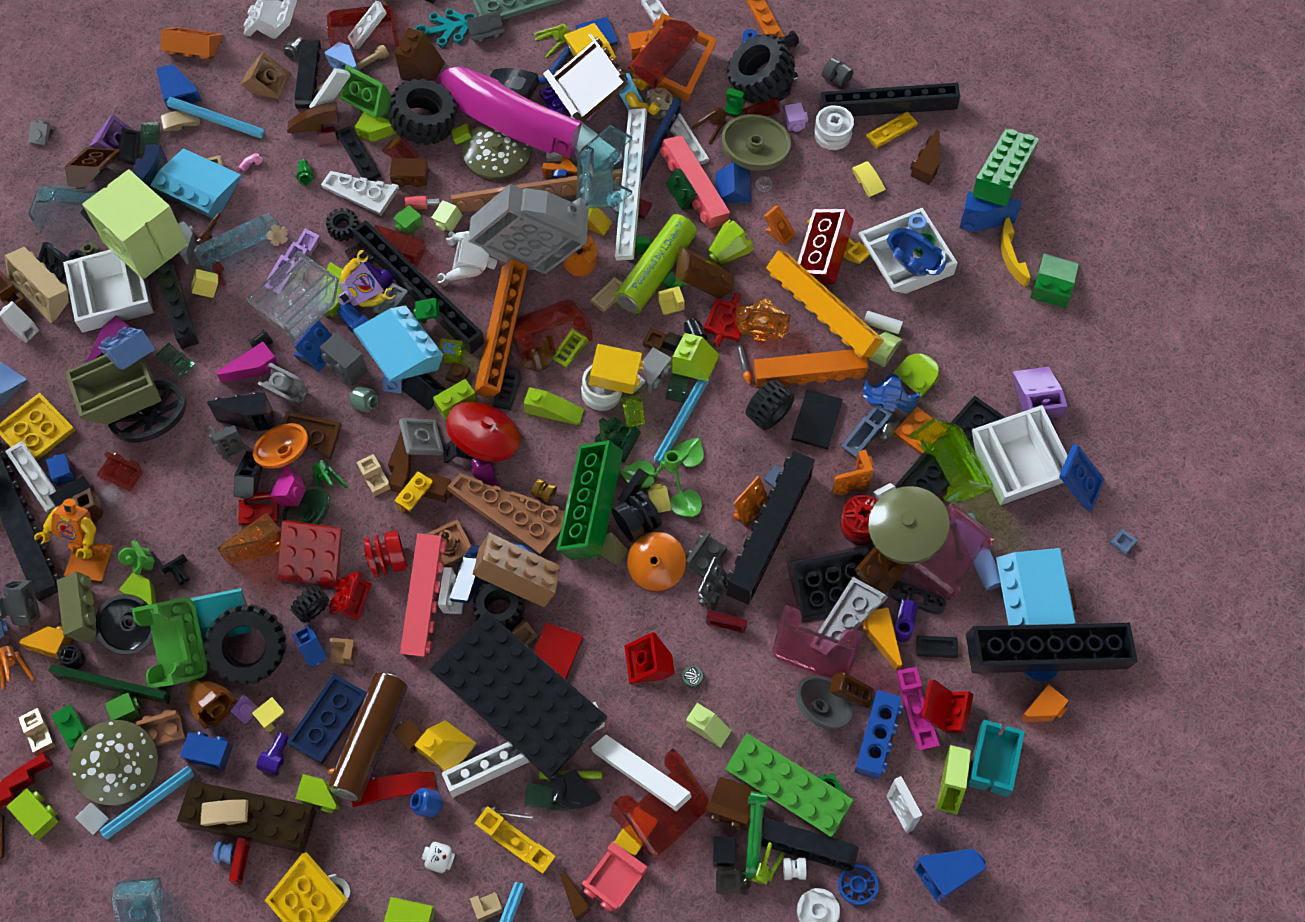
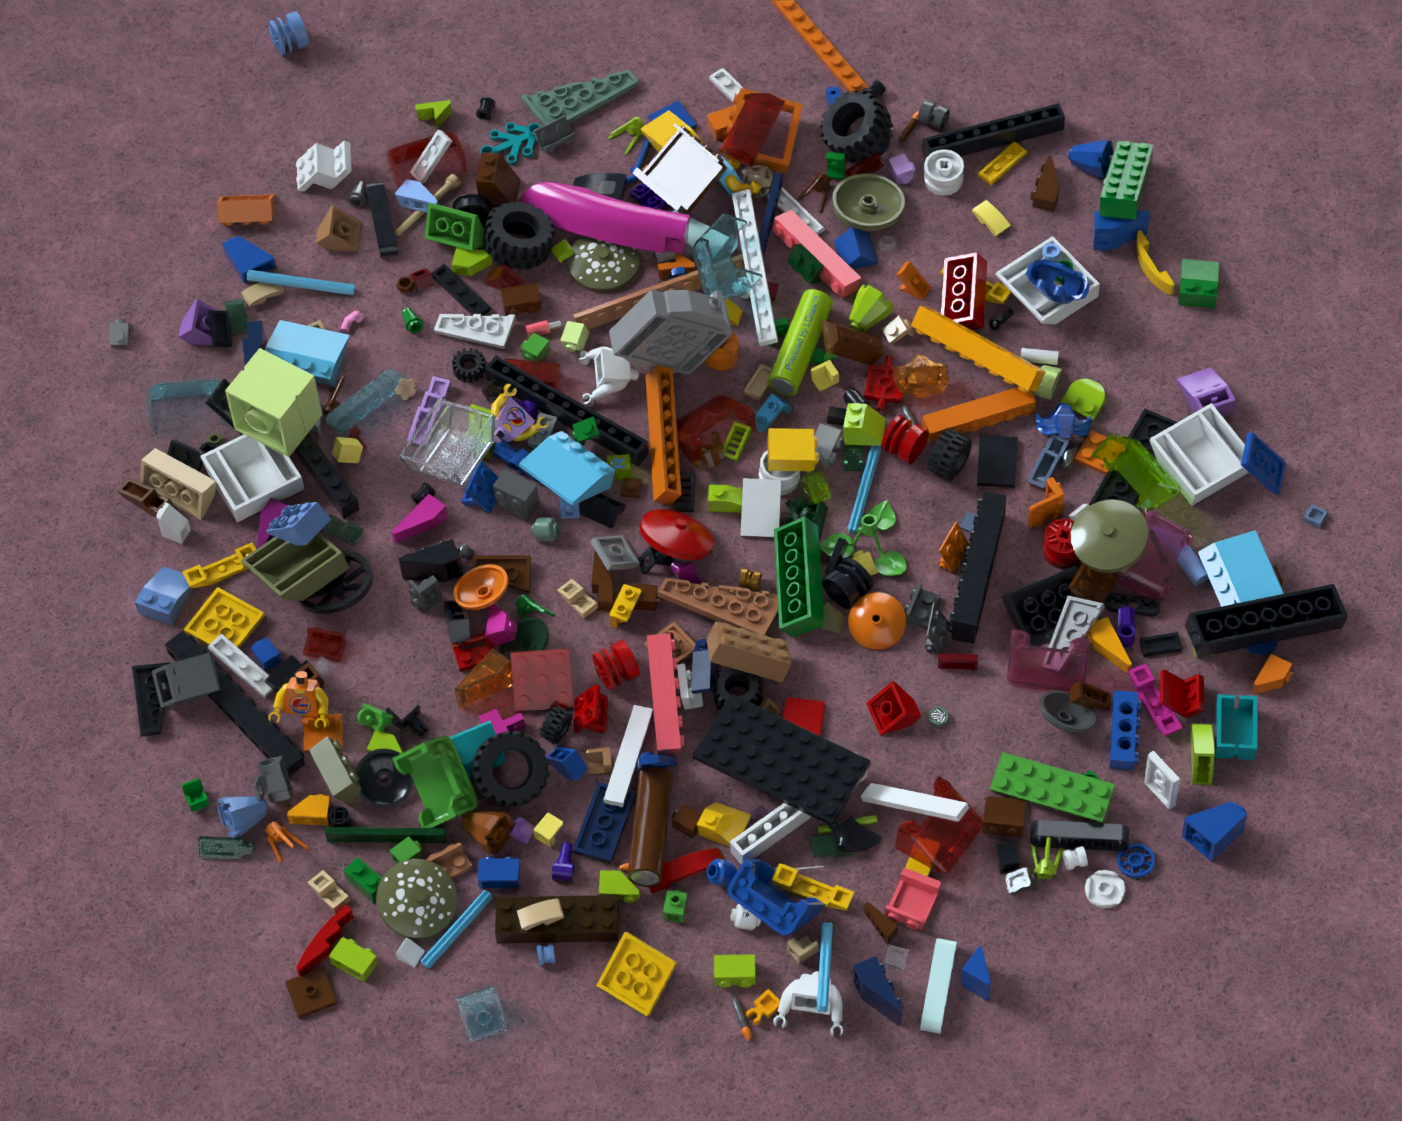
camera: 10 degrees left, 5 degrees down
(44, 377) = (218, 570): none -> yellow slope
(88, 166) = (193, 355): reddish brown slope -> none
(239, 861) = (562, 956): red tile -> none
(256, 594) = (511, 724): none -> dark pink brick
(281, 405) = (465, 551): none -> dark grey hinge
(285, 384) = (465, 528): light grey piece -> none
(309, 134) = (405, 281): none -> reddish brown plate
(314, 118) = (404, 263): reddish brown slope -> none
(331, 87) = (416, 231): white tile -> none
(370, 653) = (628, 756): none -> white tile
(370, 828) = (675, 906): none -> bright green brick
(387, 667) = (648, 760): none -> blue wing
(389, 75) = (474, 204): none -> black wheel
(453, 396) = (631, 514): lime brick -> none
(464, 848) = (753, 892): none -> blue windscreen
(573, 419) = (760, 507): none -> white tile
(610, 324) = (770, 410): none -> dark azure bracket
(654, 339) = (817, 415): reddish brown plate -> none
(708, 725) = (964, 754): yellowish green slope -> none
(730, 380) = (905, 439): none -> red wheel
(753, 268) = (897, 329): none -> tan bracket
(757, 803) = (1028, 810): green piece -> none
(811, 81) = (908, 128): none -> reddish brown piece
(854, 278) = (1000, 319): none -> black arm
(978, 139) = (1092, 157): none -> blue cone

